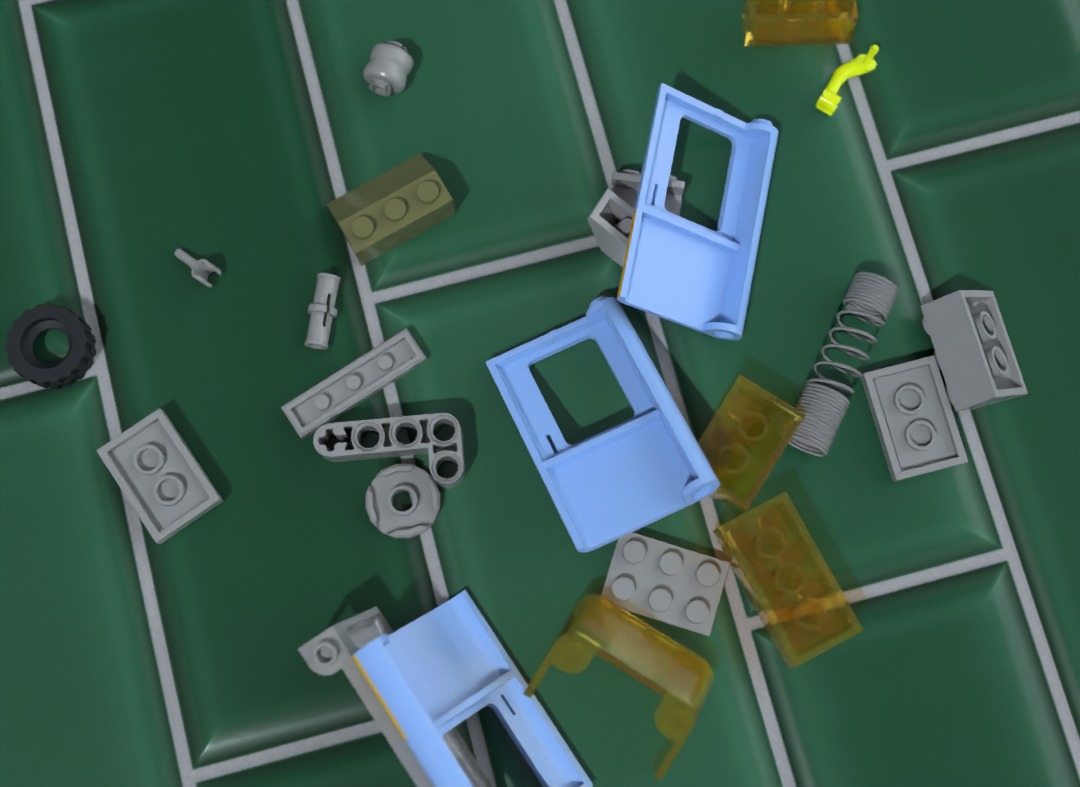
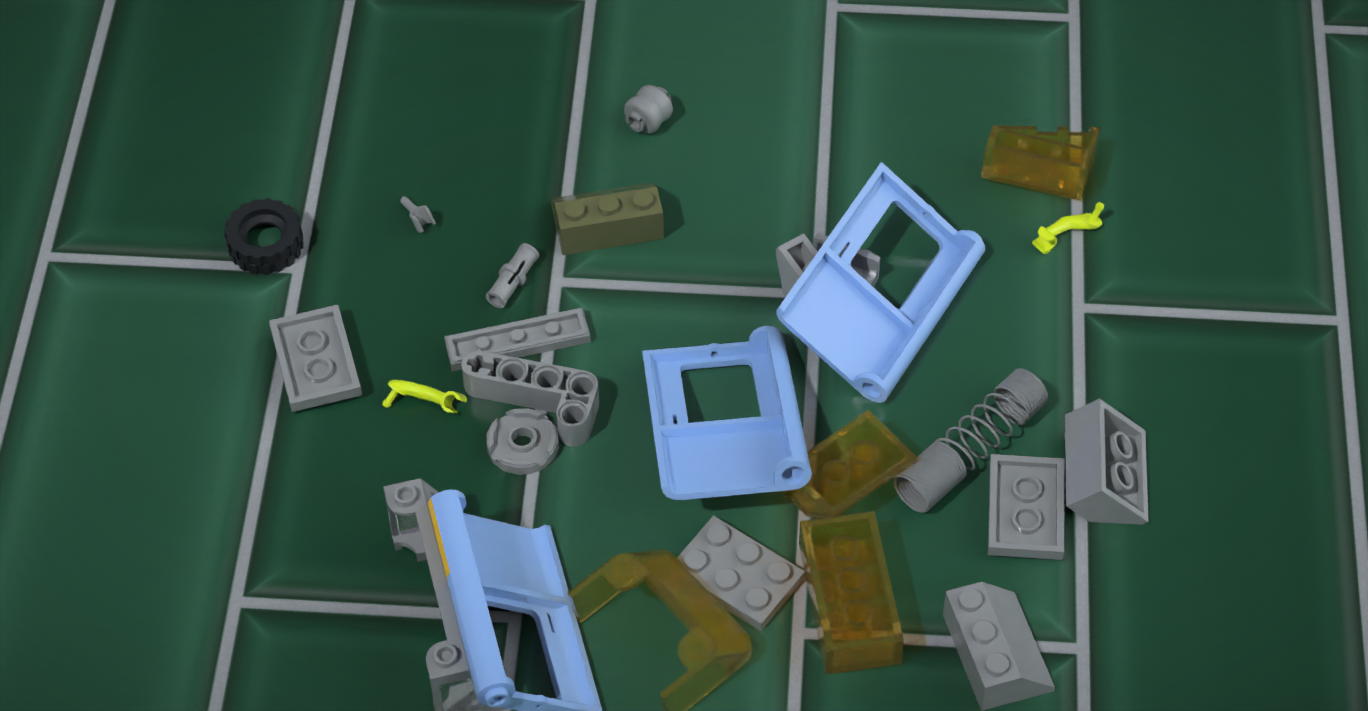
camera: 20 degrees right, 25 degrees down
(265, 481) = (423, 392): none -> neon yellow piece
(937, 586) = (995, 645): none -> light grey slope

